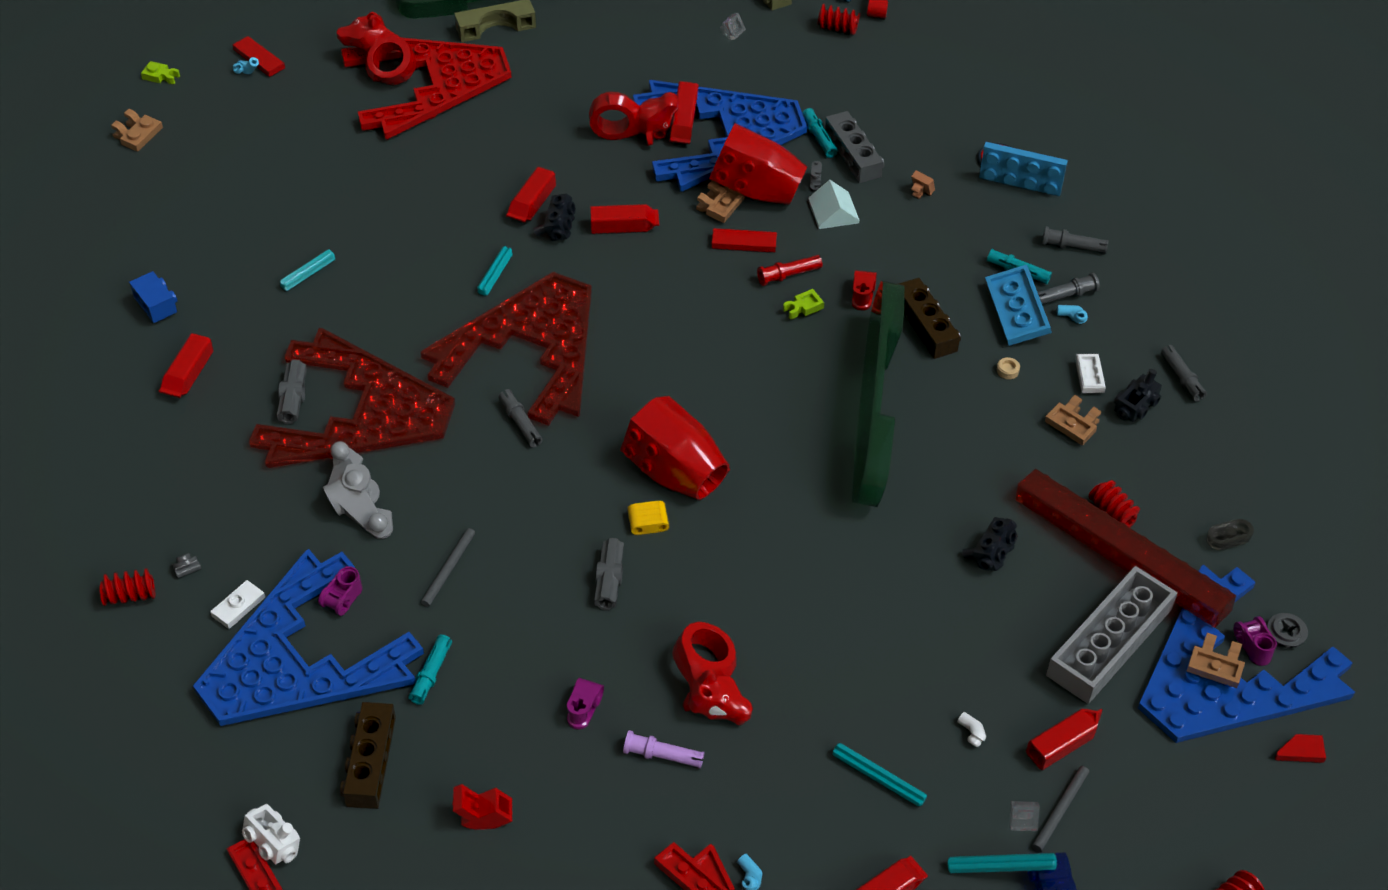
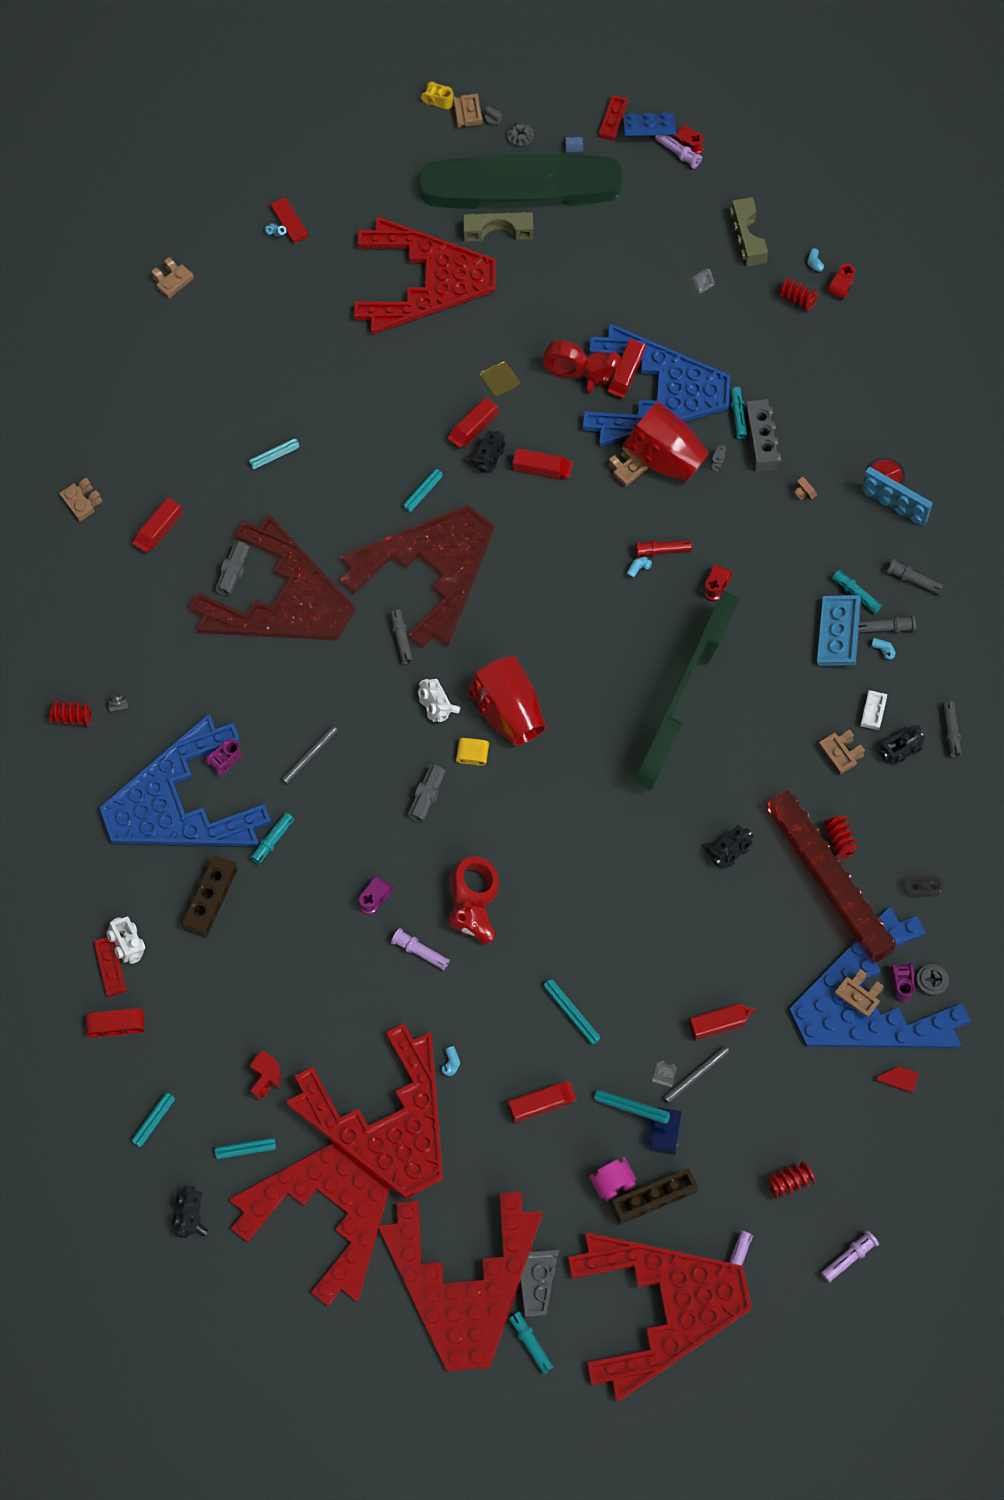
camera: 20 degrees right, 15 degrees up
(77, 365) = (75, 499): none -> medium nougat plate
(154, 296) = (147, 453): blue brick -> none
(157, 72) = (202, 219): lime plate -> none
(237, 604) = (147, 746): white plate -> none
(355, 492) = (256, 674): light grey piece -> none
(373, 37) = (388, 231): red animal -> none
(482, 810) = (276, 961): red brick -> none
(545, 153) = (500, 378): none -> clear yellow piece
(585, 472) = (435, 700): none -> white brick
(744, 240) = (636, 508): red tile -> none
(768, 290) = (637, 564): none -> medium azure arm
(806, 302) = (664, 584): lime plate -> none
(832, 206) = (723, 493): light aqua slope -> none
(929, 319) = (759, 597): dark brown brick -> none
(975, 727) = (657, 995): white arm -> none
(1008, 368) = (809, 687): tan tile -> none
(1111, 634) = (790, 947): light grey brick -> none

